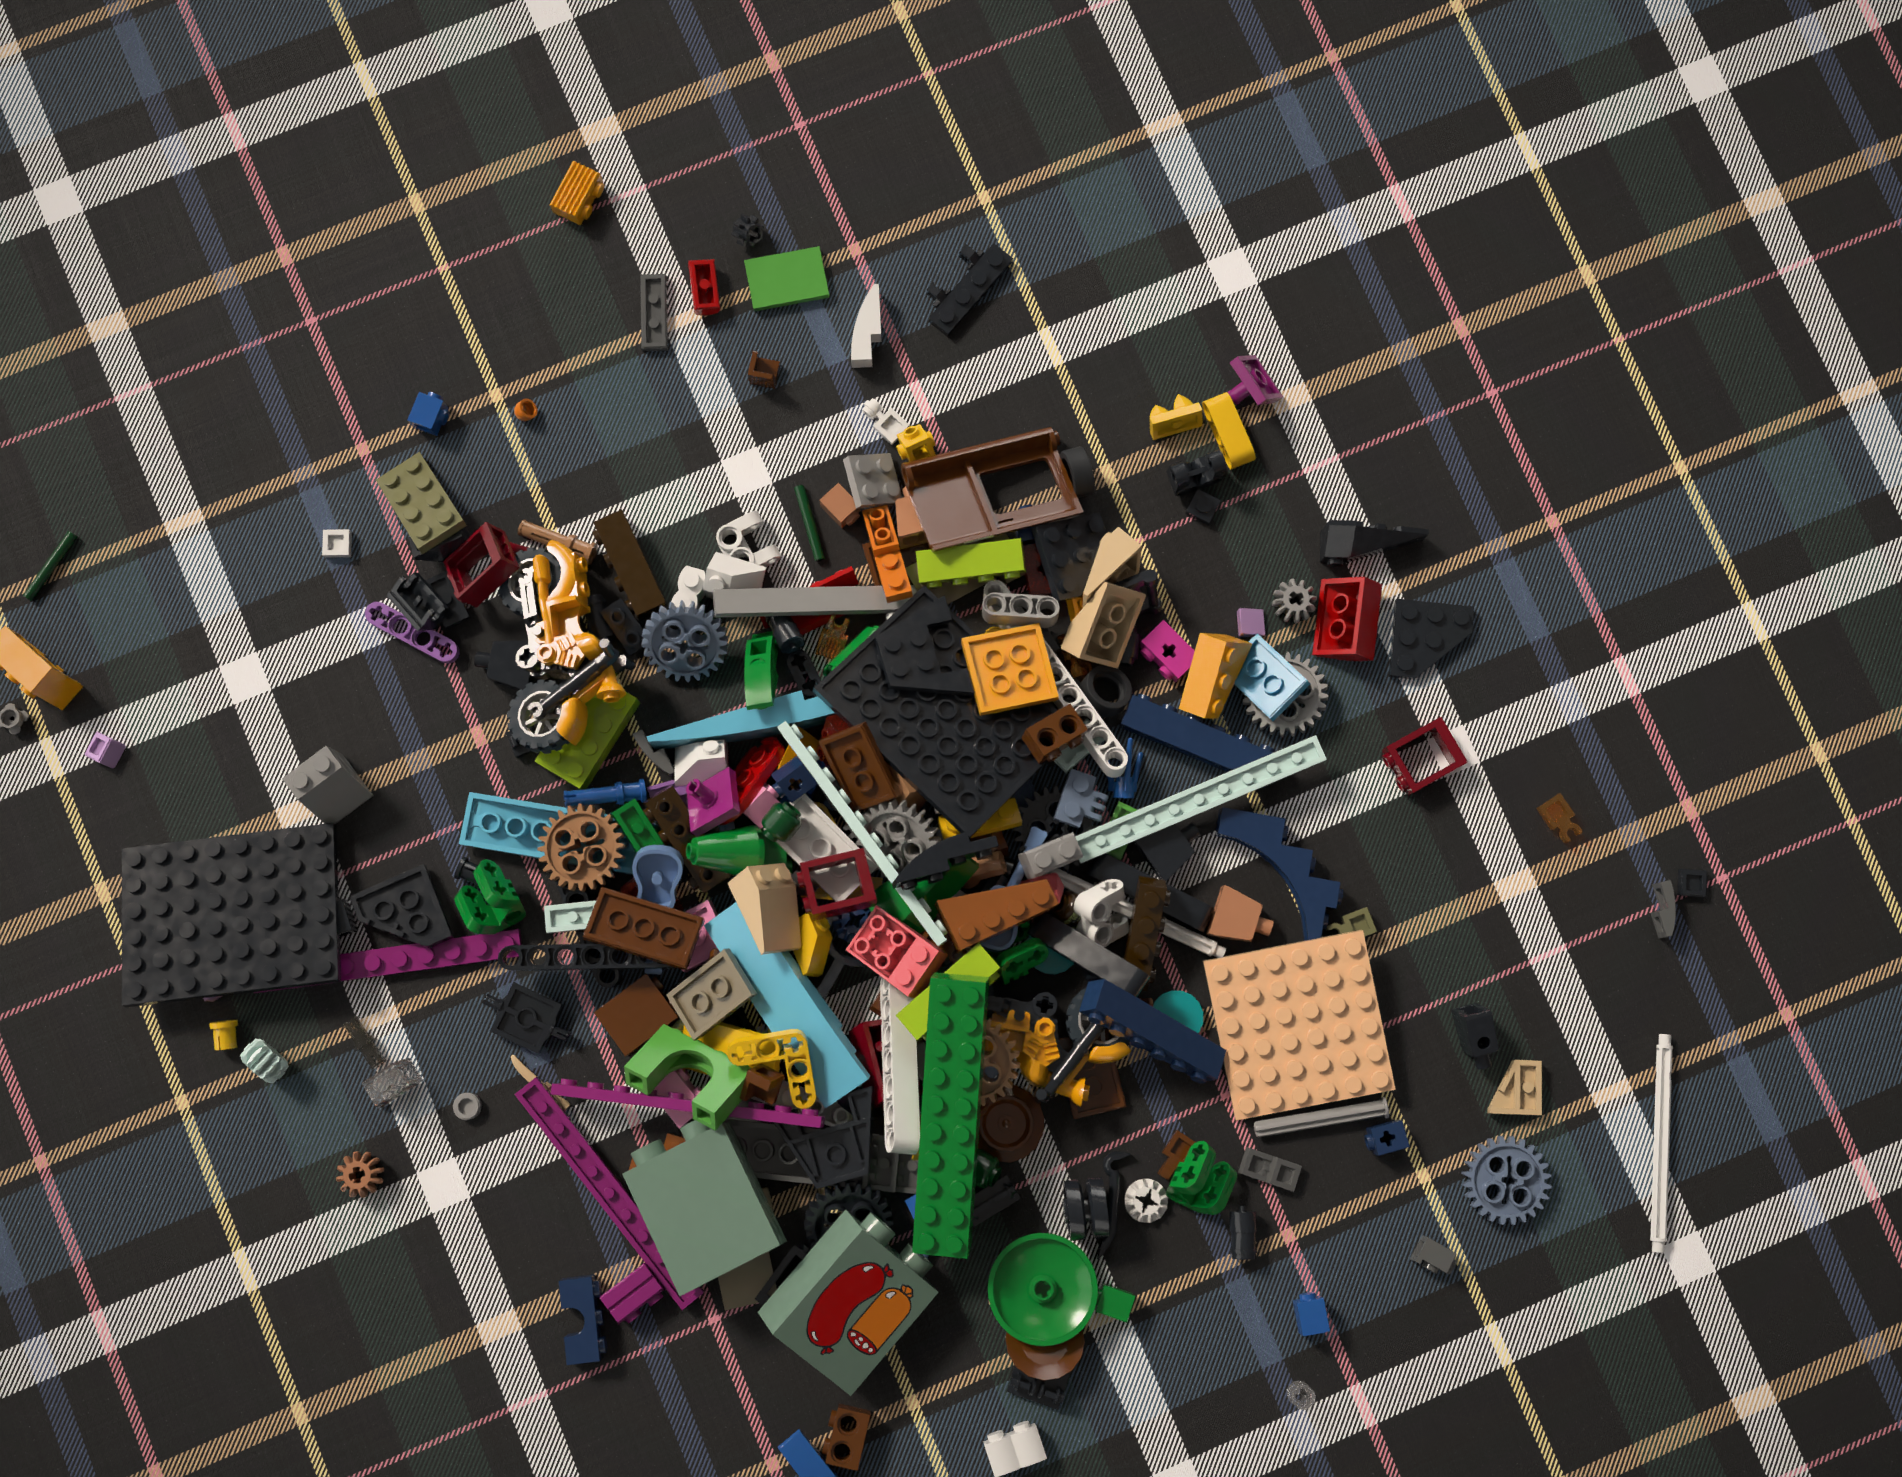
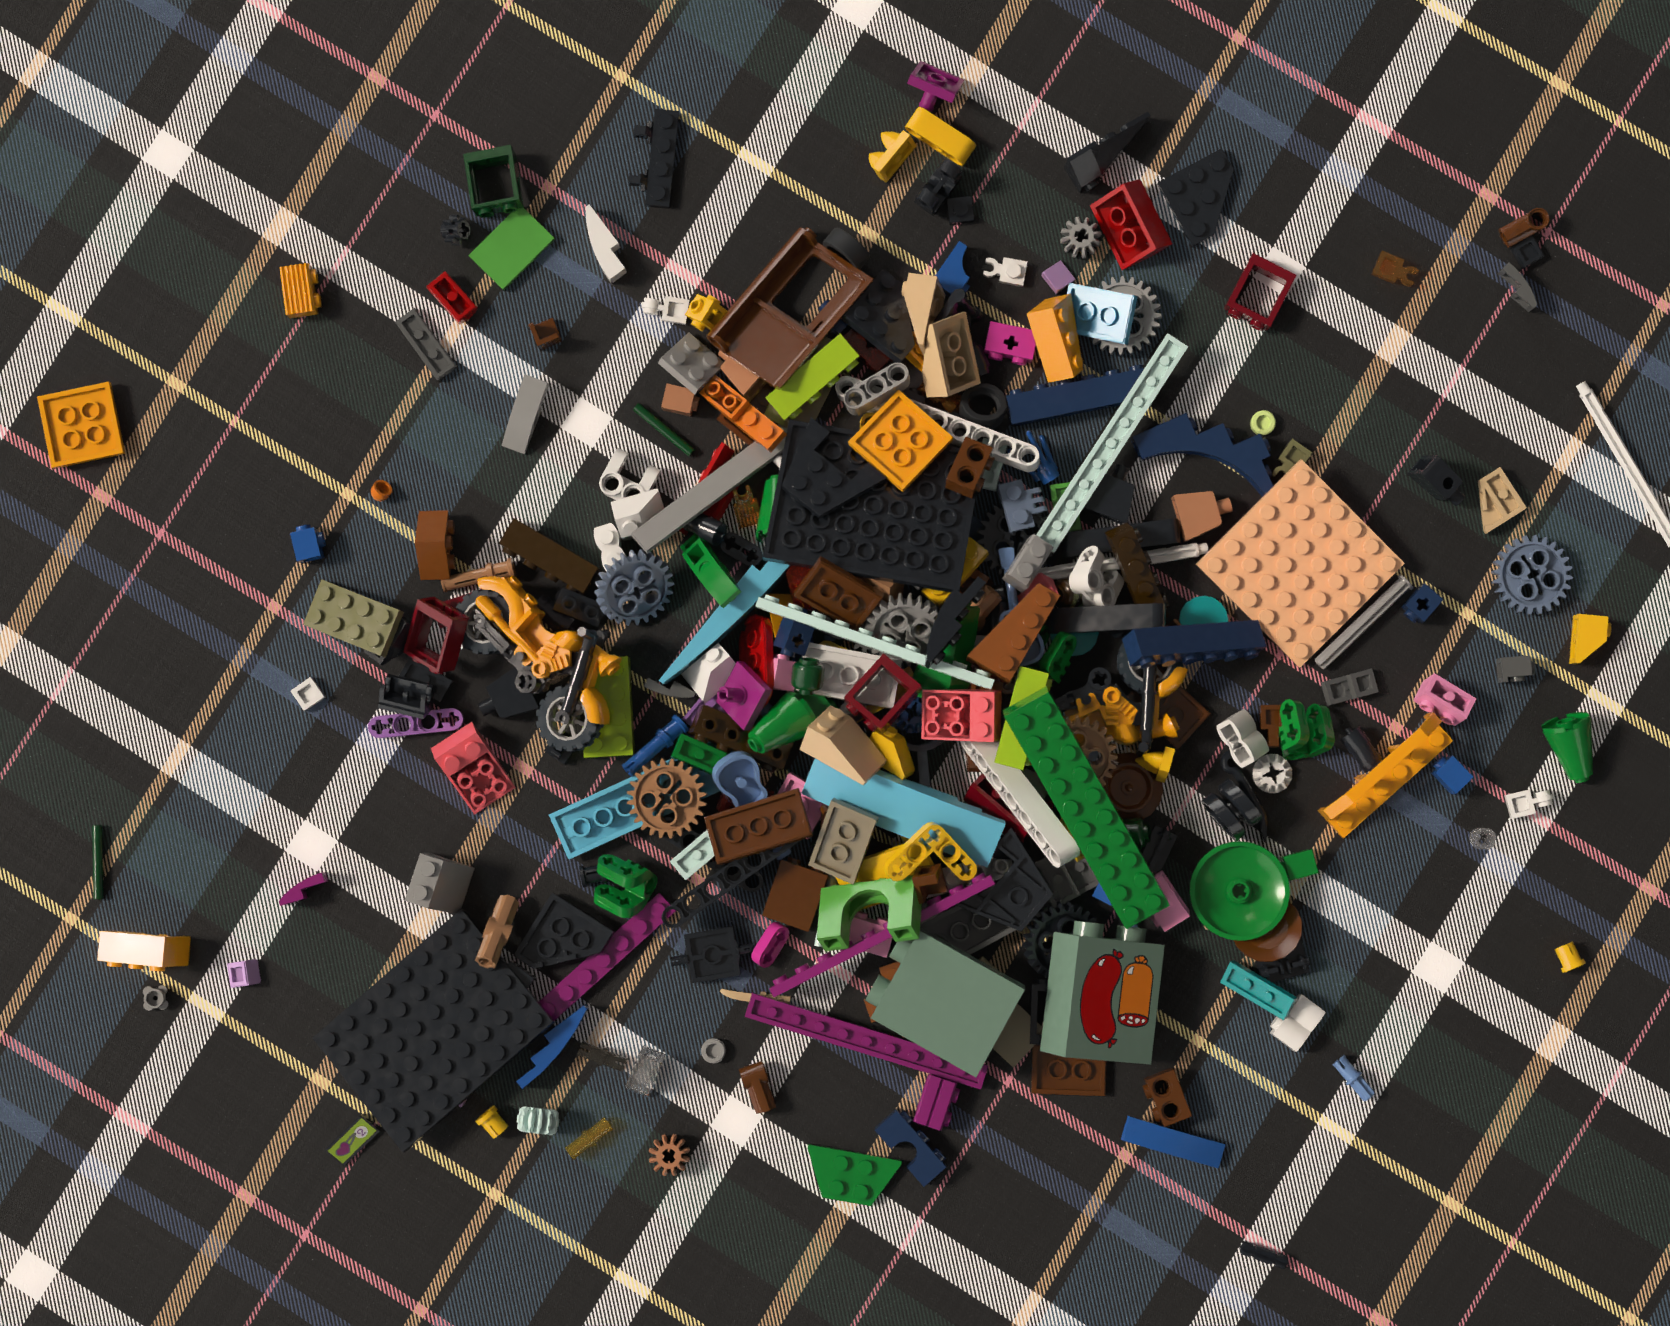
camera: 25 degrees left, 5 degrees up
(91, 964) = (352, 1139): none -> slope
(204, 710) = (298, 892): none -> magenta slope
(299, 1108) = (588, 1138): none -> clear yellow pin
(309, 182) = (81, 425): none -> light orange plate
(334, 1000) = (558, 1039): none -> blue slope
(348, 864) = (497, 931): none -> medium nougat piece
(432, 705) = (472, 768): none -> coral slope
(484, 1159) = (756, 1081): none -> reddish brown piece
(511, 1306) = (851, 1174): none -> green wing
(535, 486) = (434, 545): none -> dark orange brick
(584, 1044) = (770, 944): none -> dark pink beam
(697, 427) = (525, 414): none -> light grey slope
(768, 1354) = (1066, 1075): none -> reddish brown tile
(815, 188) = (487, 159): none -> dark green window
(975, 1265) = (1176, 911): none -> bright pink brick
(998, 1394) = (1258, 990): none -> teal plate
(1046, 1118) = (1157, 762): none -> yellow tile
(1140, 1149) = (1243, 739): none -> white brick
(1157, 554) = (951, 272): none -> blue arch
(1211, 590) = (1010, 271): none -> white plate
(1250, 1276) = (1387, 776): none -> light orange plate
(1349, 875) = (1263, 423): none -> yellowish green tile
(1349, 1241) = (1444, 700): none -> bright pink brick
(1359, 1388) = (1522, 804): none -> white plate
(1442, 1363) = (1572, 744): none -> green cone
(1522, 1271) = (1587, 635): none -> yellow slope
(1703, 858) = (1522, 227): none -> reddish brown piece

